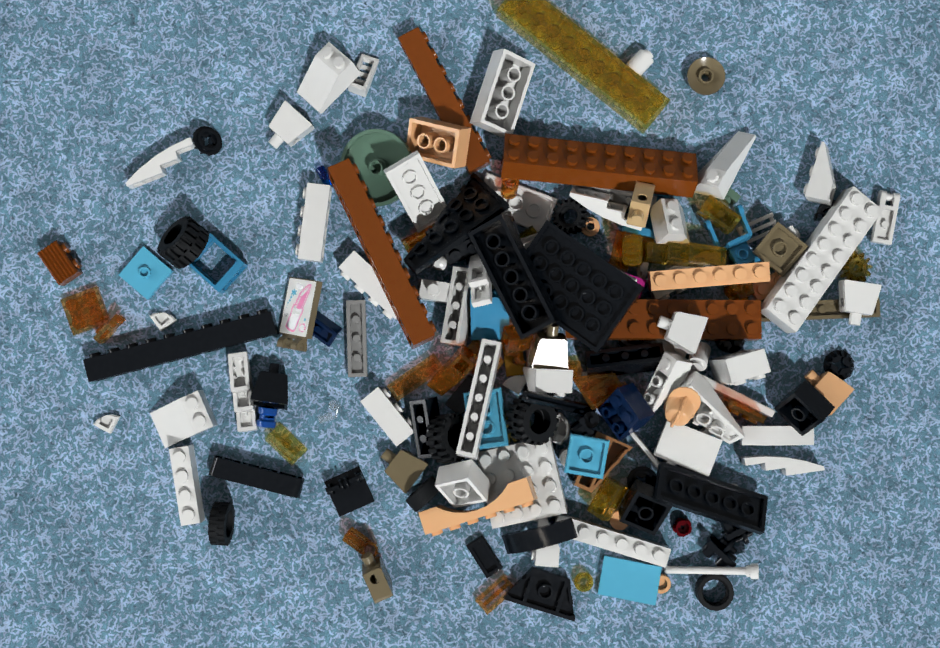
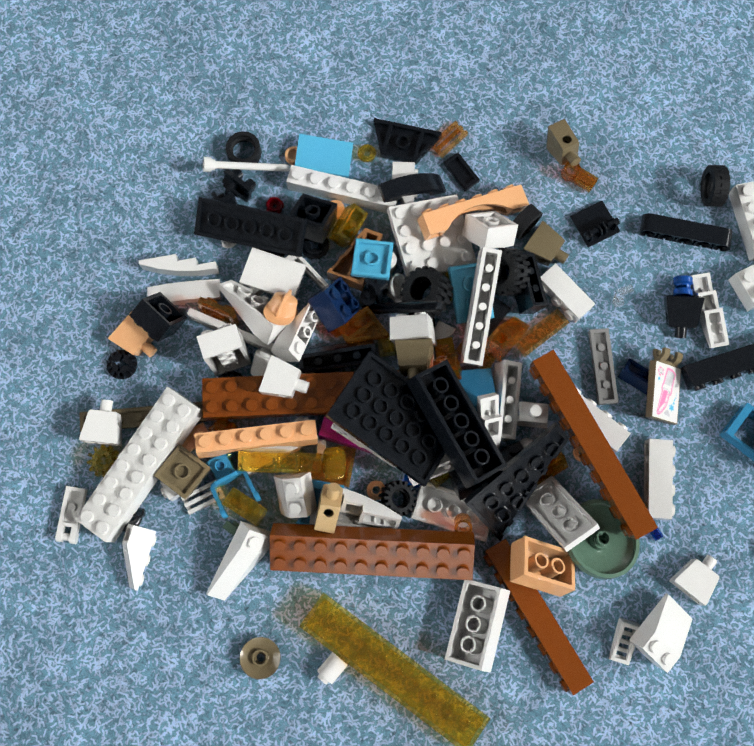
camera: 175 degrees right, 10 degrees down
(285, 444) = (660, 264): clear yellow slope -> none

